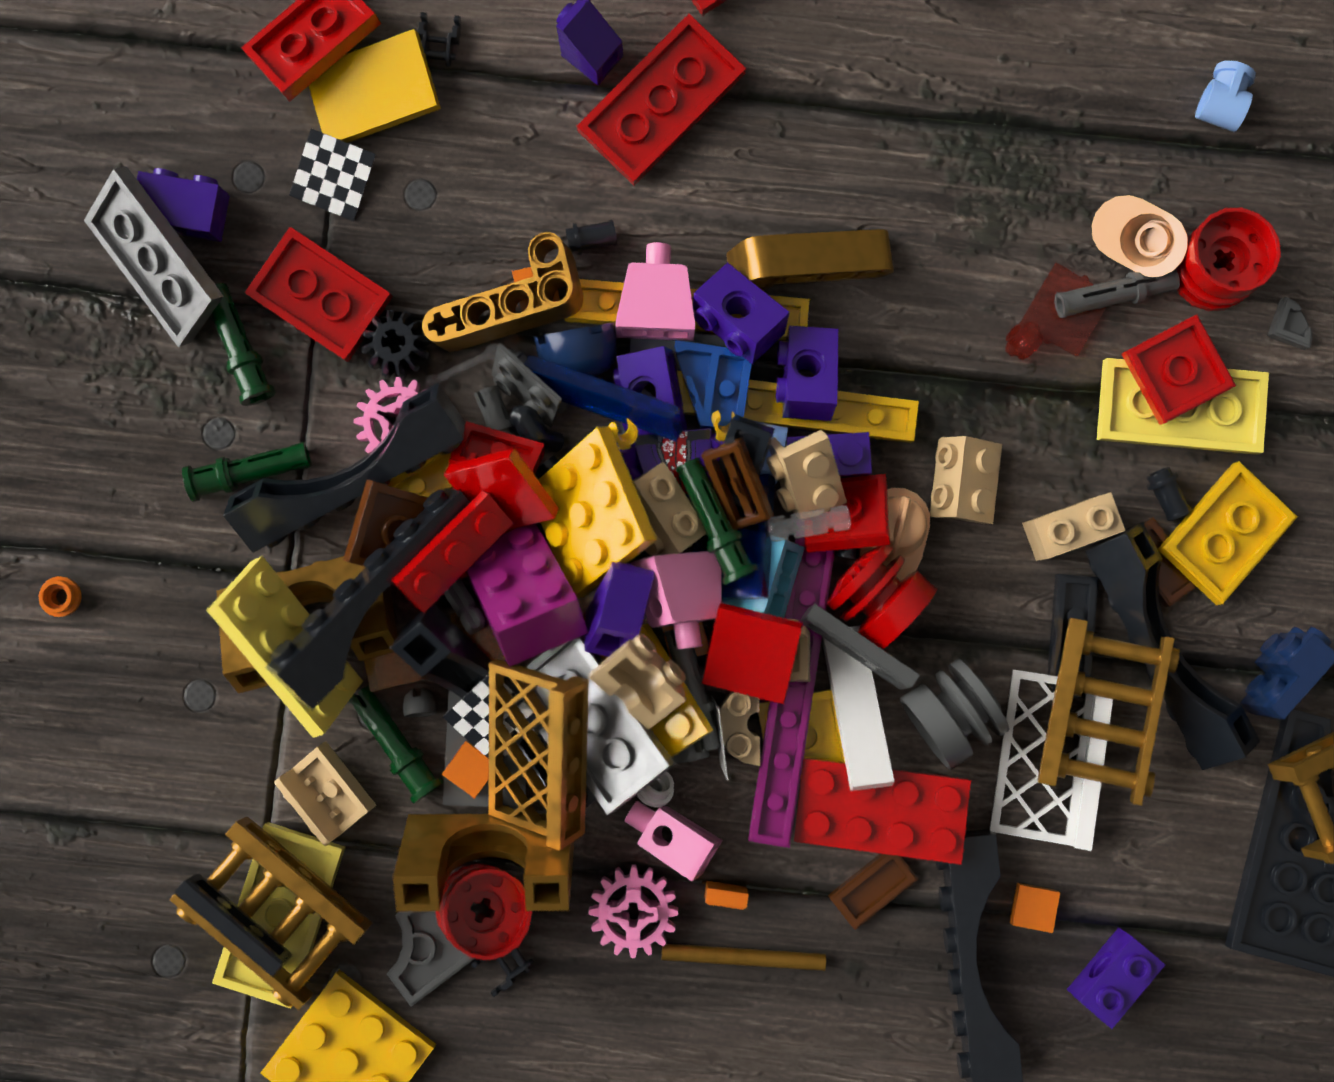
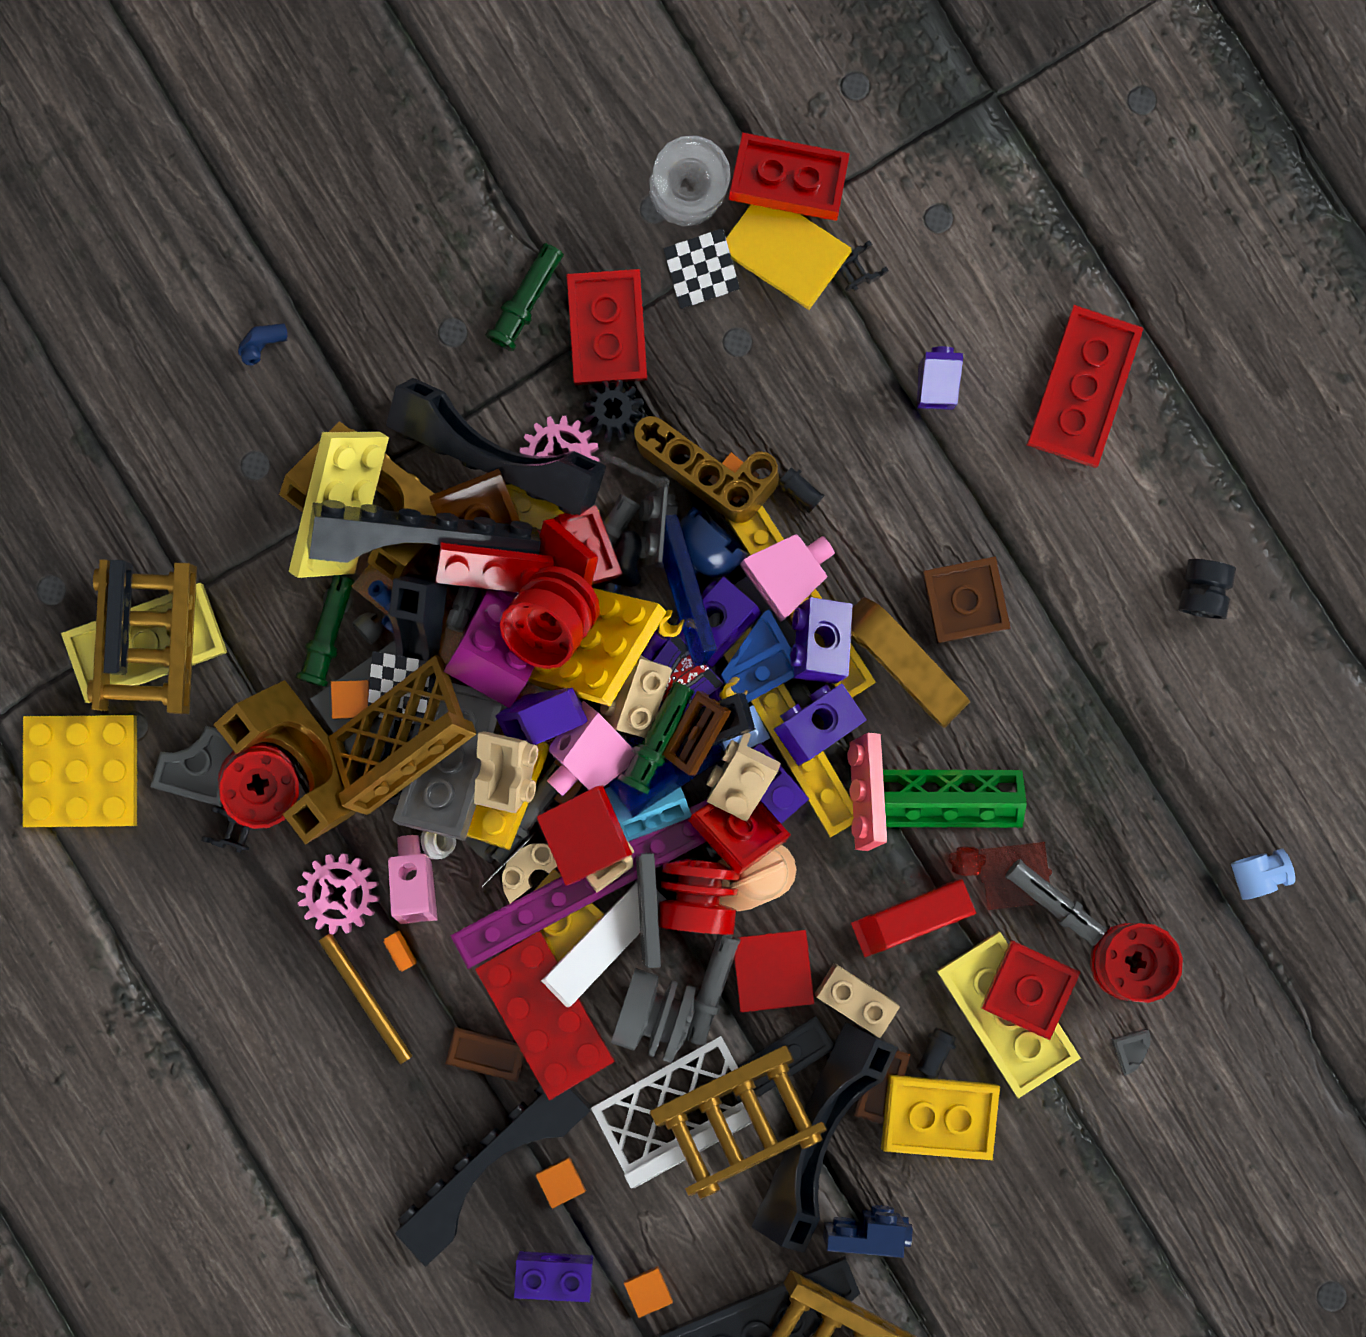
camera: 55 degrees right, 0 degrees up
(48, 595) = (244, 302): orange plate -> none
(88, 607) = (257, 338): none -> dark blue arm
(152, 256) = (541, 190): flat silver plate -> none
(191, 206) = (598, 184): dark purple slope -> none
(228, 473) = (427, 363): dark green pin -> none
(237, 102) = (699, 163): none -> clear wheel
(325, 794) = (254, 609): tan bracket -> none
(398, 669) = (382, 595): none -> dark blue arm
(534, 532) = (549, 617): none -> red wheel
(661, 99) = (940, 463): red plate -> none
(796, 168) = (966, 600): none -> reddish brown plate
(809, 523) = (708, 805): clear axle -> none
(900, 377) = (867, 792): none -> coral plate
(964, 316) = (951, 805): none -> green fence
(966, 479) = (832, 897): tan bracket -> none
(966, 643) = (712, 986): none -> dark grey pin
(990, 580) = (773, 971): none -> red tile
(1038, 422) = (913, 917): none -> red piece
(1140, 235) = (1106, 887): light nougat piece -> none
(1188, 903) = (648, 1292): none -> orange tile

